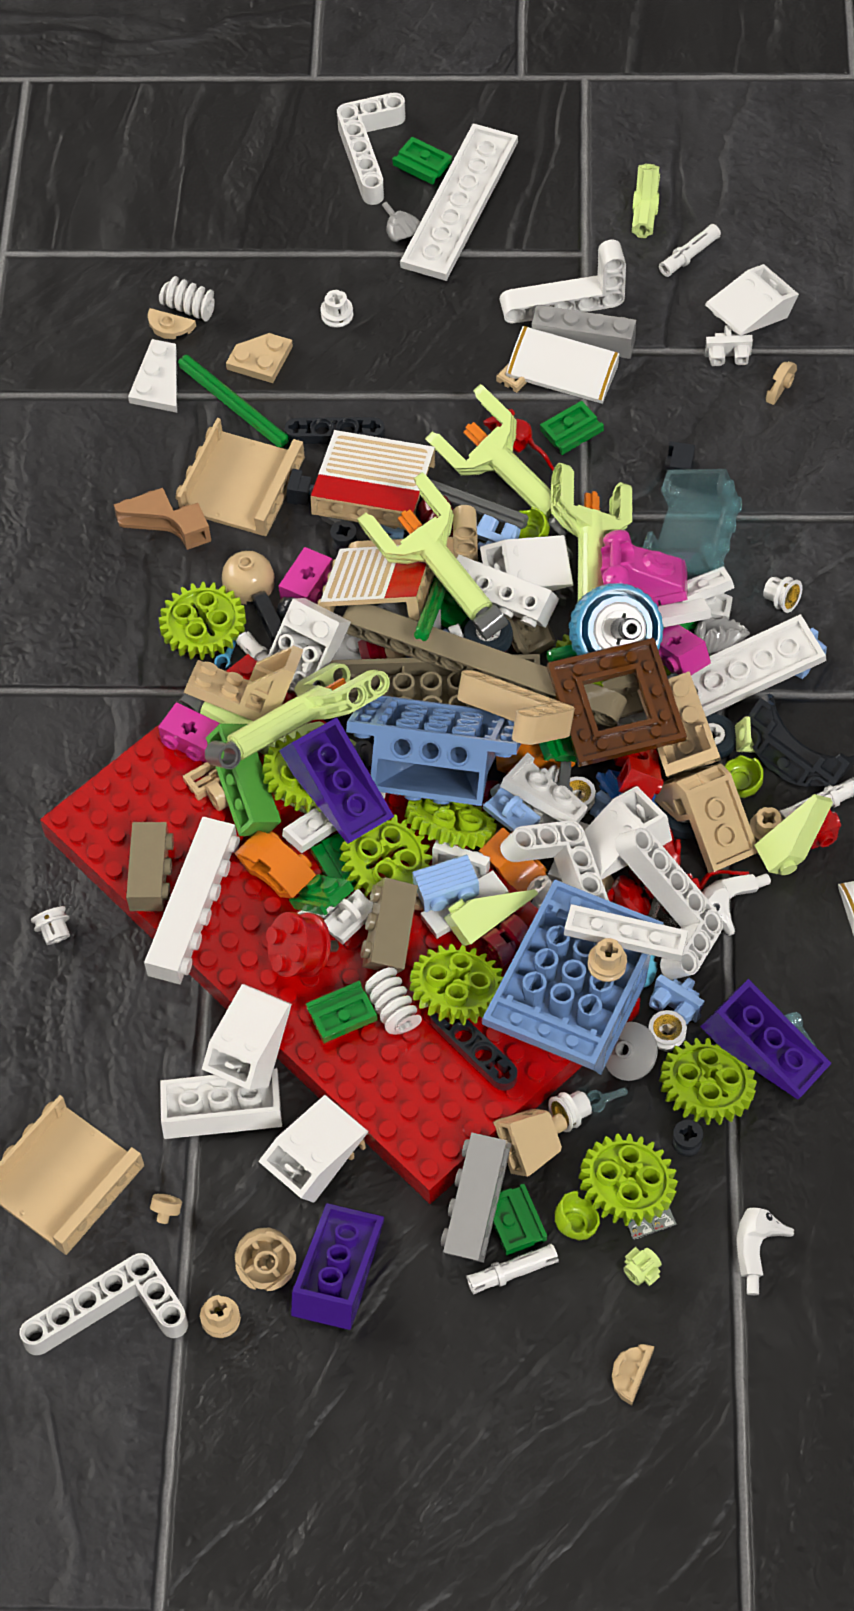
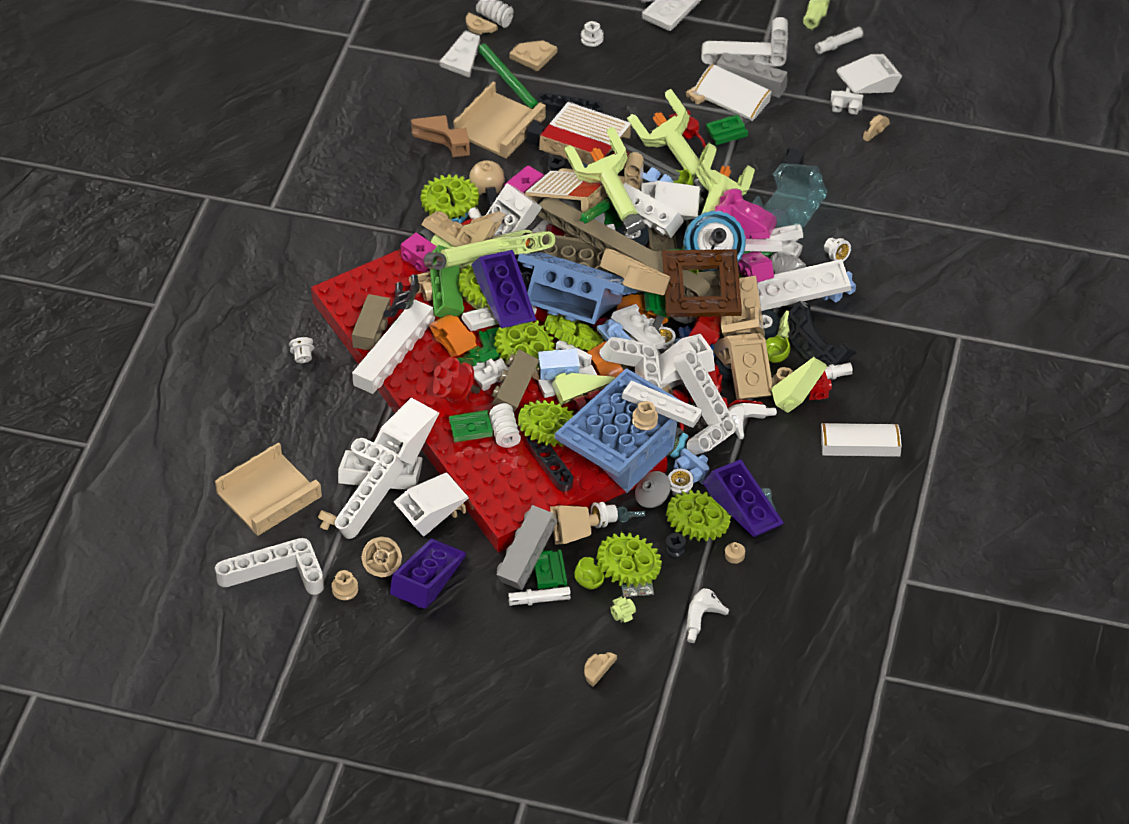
camera: 10 degrees right, 10 degrees down
(195, 828) = (403, 299): none -> black piece
(217, 1141) = (373, 488): none -> white beam
(775, 1129) = (734, 553): none -> tan tile

